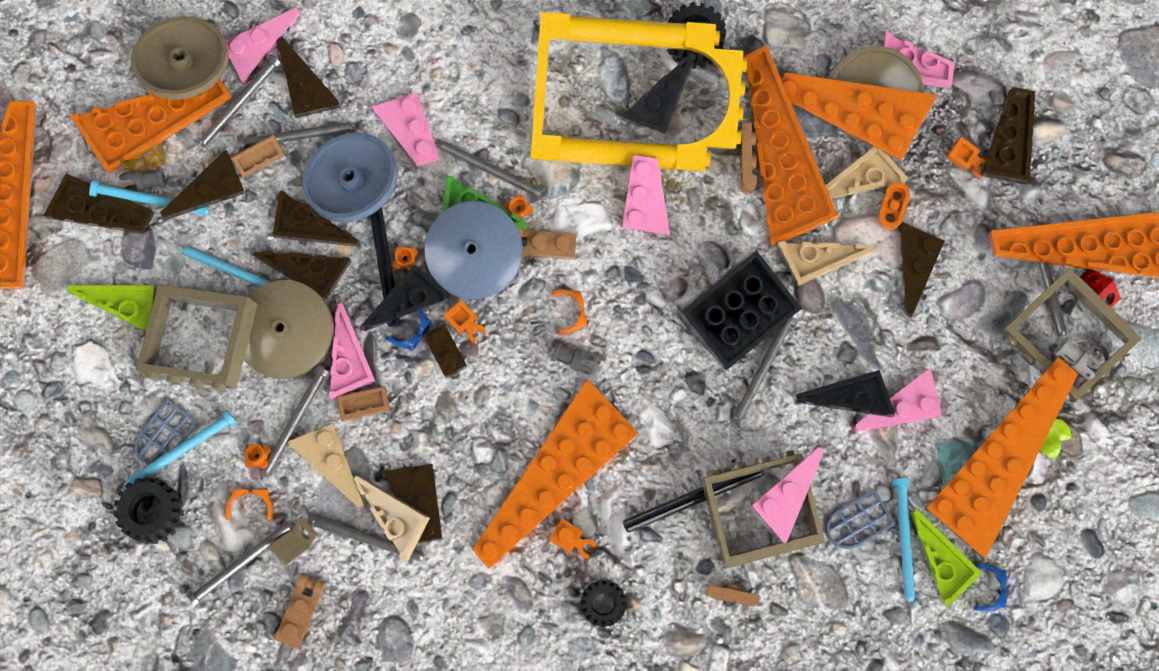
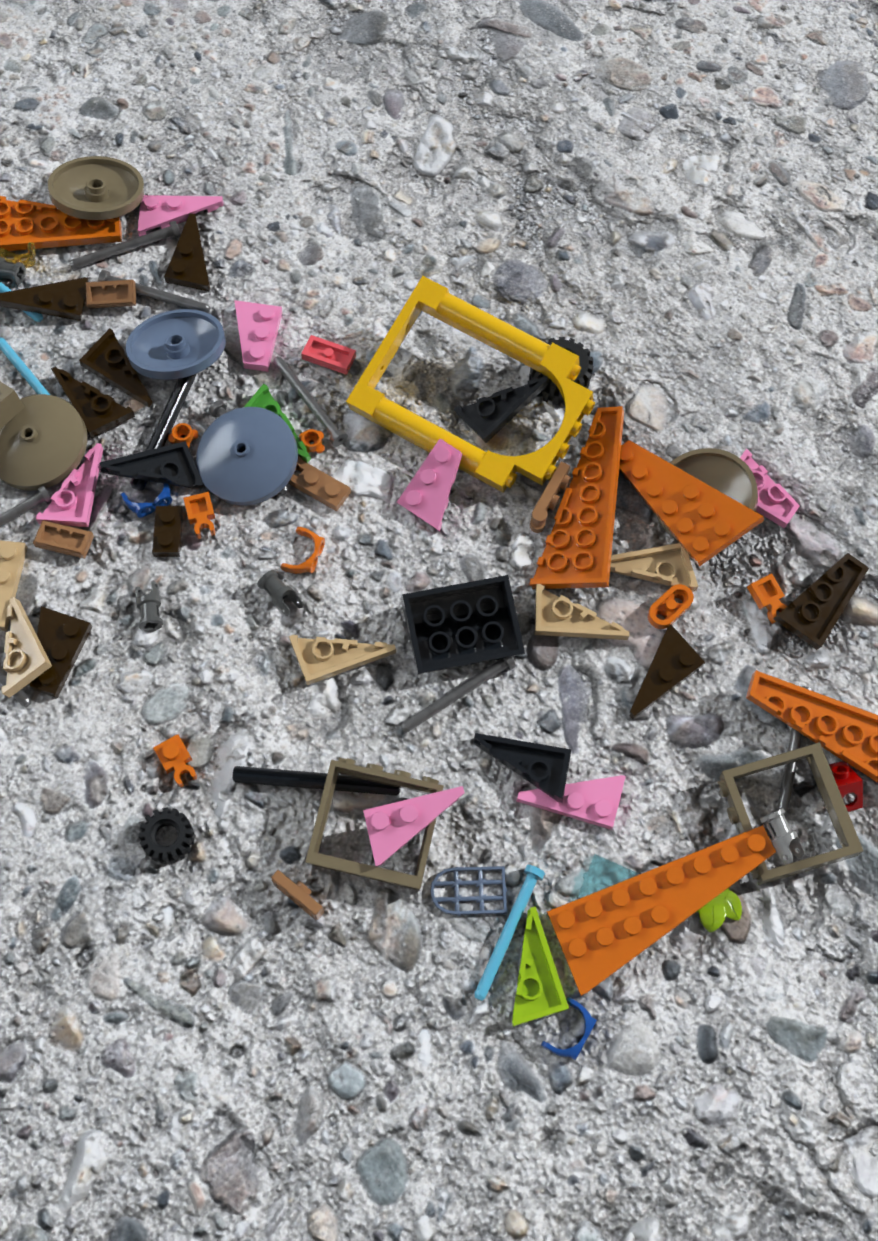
camera: 25 degrees right, 10 degrees down
(473, 426) = (149, 608): none -> dark grey piece
(485, 118) = (328, 354): none -> coral plate
(574, 451) = (225, 681): orange wing -> none
(642, 393) = (326, 658): none -> tan wing

